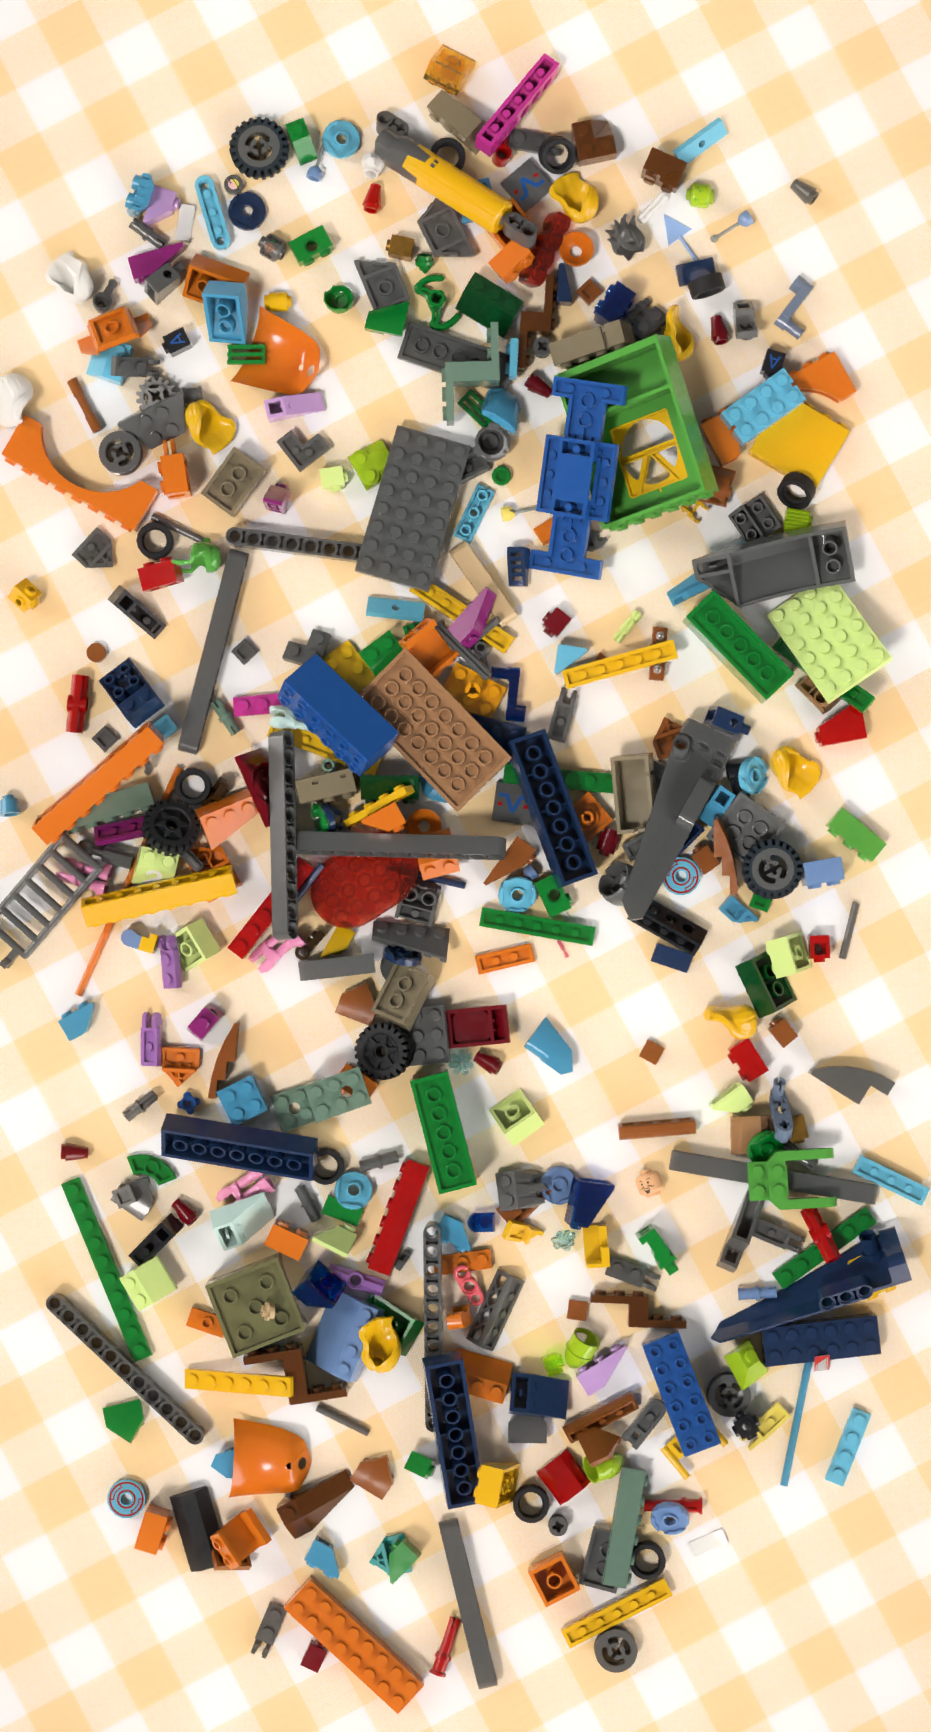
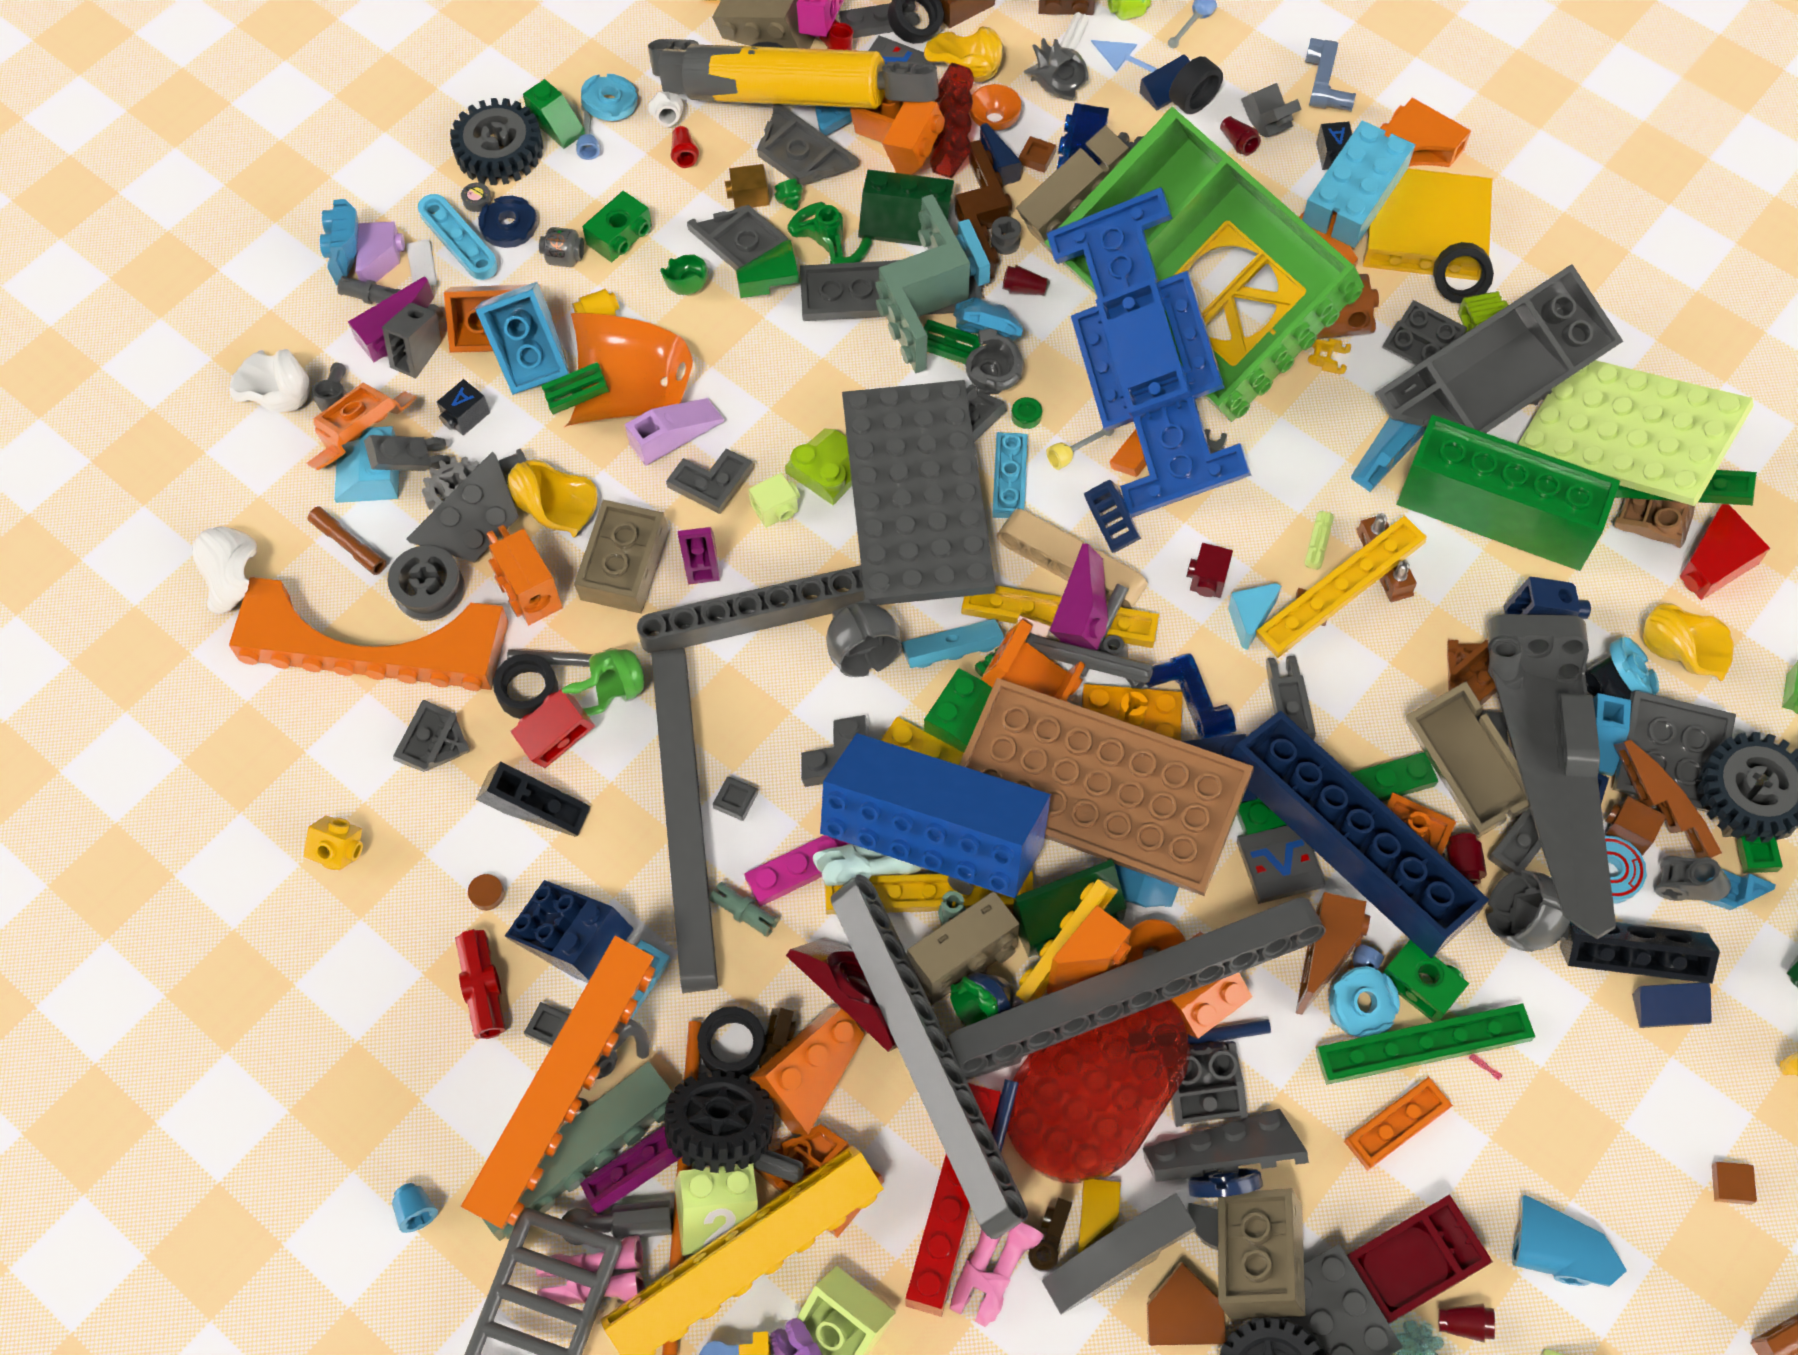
camera: 15 degrees left, 25 degrees down
(345, 589) = (862, 639): none -> dark grey piece
(442, 619) = (1040, 626): none -> tile
(714, 899) = (1686, 879): none -> dark grey piece

